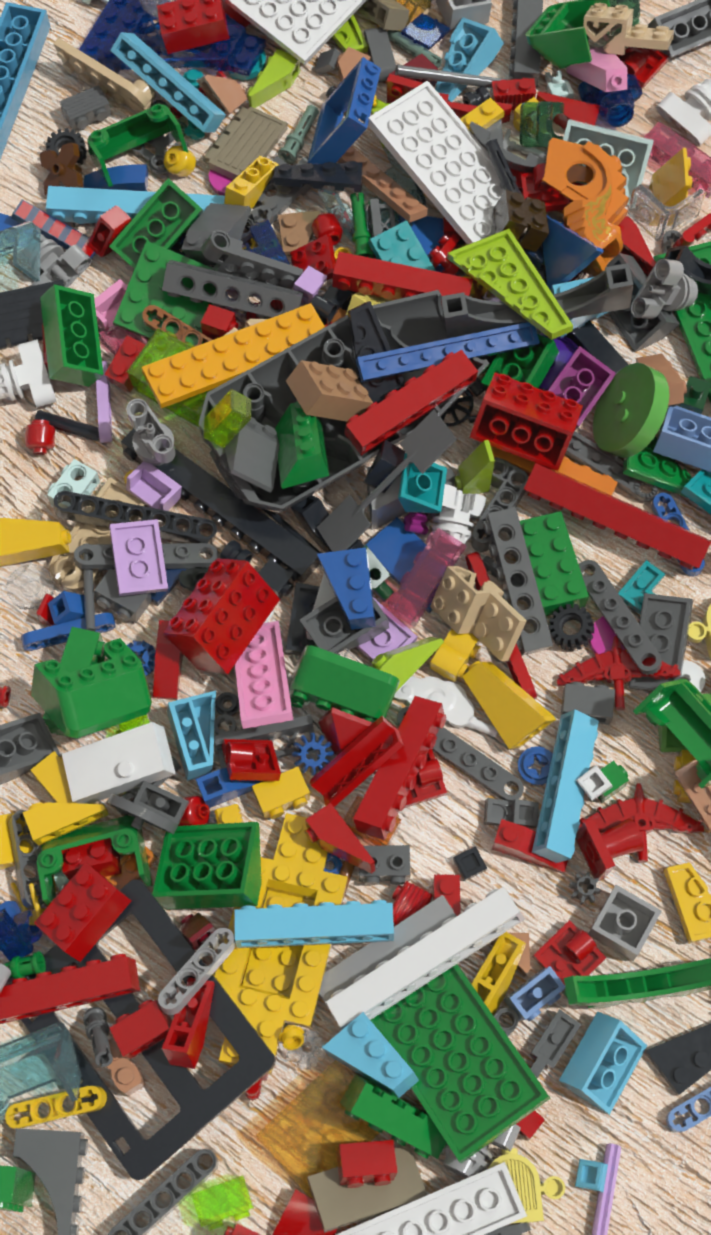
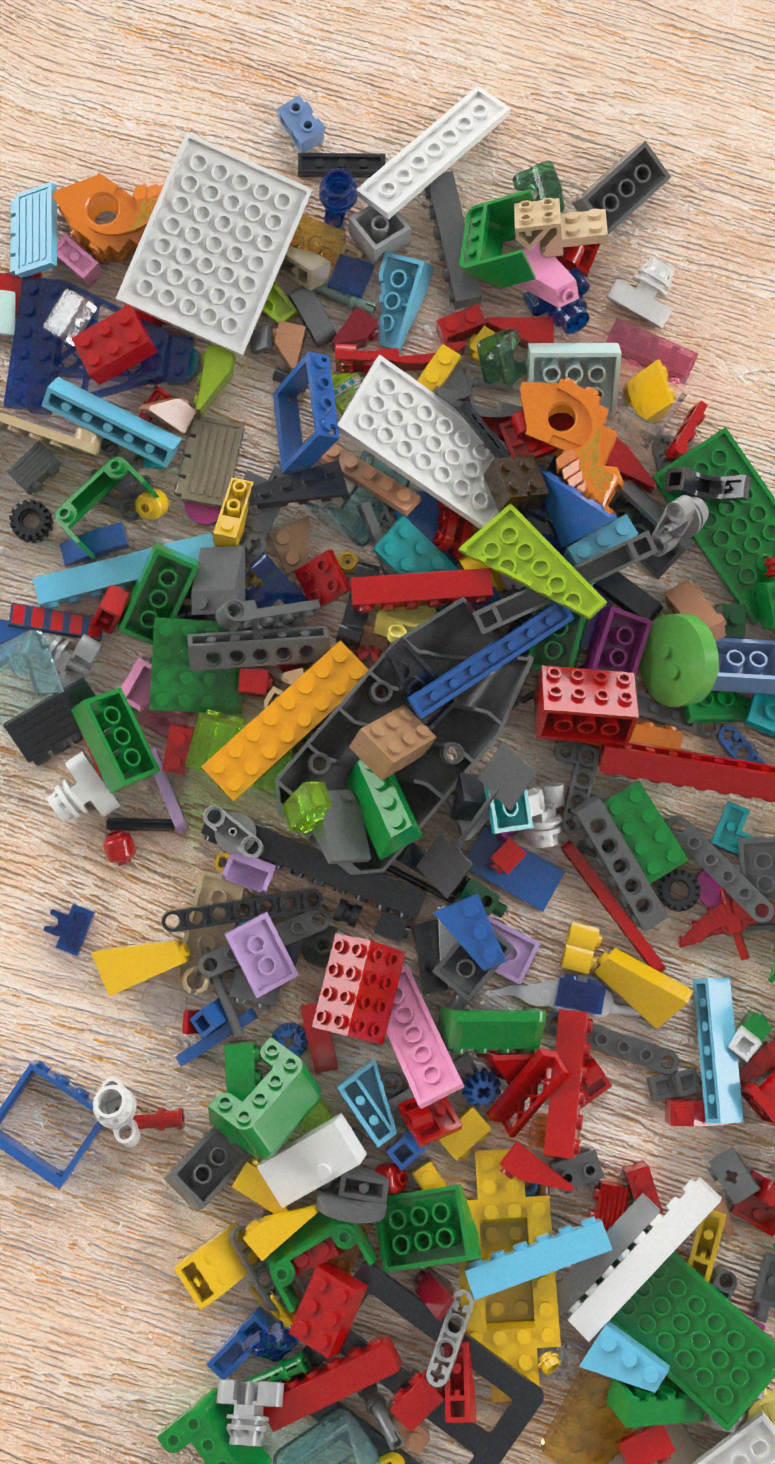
camera: 20 degrees left, 15 degrees up
(62, 167) = (39, 551): reddish brown plant -> none
(67, 483) = (176, 892): light aqua brick -> none
(184, 329) = (221, 699): dark orange beam -> none
(192, 76) = (131, 399): teal plate -> none
(227, 697) = (394, 1060): black plate -> none
(291, 147) = (258, 444): sand green pin -> none
(309, 283) = (331, 615): lavender panel -> none
(327, 224) = (323, 537): red head -> none
(361, 234) = (362, 541): green pin -> none
(406, 659) = (536, 975): lime slope -> none
(407, 540) = (506, 857): none -> red brick
(410, 402) = (474, 727): red brick -> none
(425, 577) = (533, 887): clear pink brick -> none
(439, 688) = (579, 995): none -> clear blue brick
(444, 76) = (395, 328): dark grey piece -> none
(470, 863) = (650, 1142): black tile -> none
(476, 471) = (549, 763): lime slope -> none
(477, 97) = (426, 341): black wheel -> none
(478, 612) = (593, 908): tan piece -> none
(526, 761) = (673, 1029): blue gear -> none
(535, 993) = (743, 1249): medium blue brick -> none
(543, 902) = (745, 1185): none -> dark grey brick
(557, 86) = (503, 303): light aqua plate -> none
(578, 890) = (763, 1141): dark grey gear -> none
(592, 701) = (713, 960): dark grey brick -> none

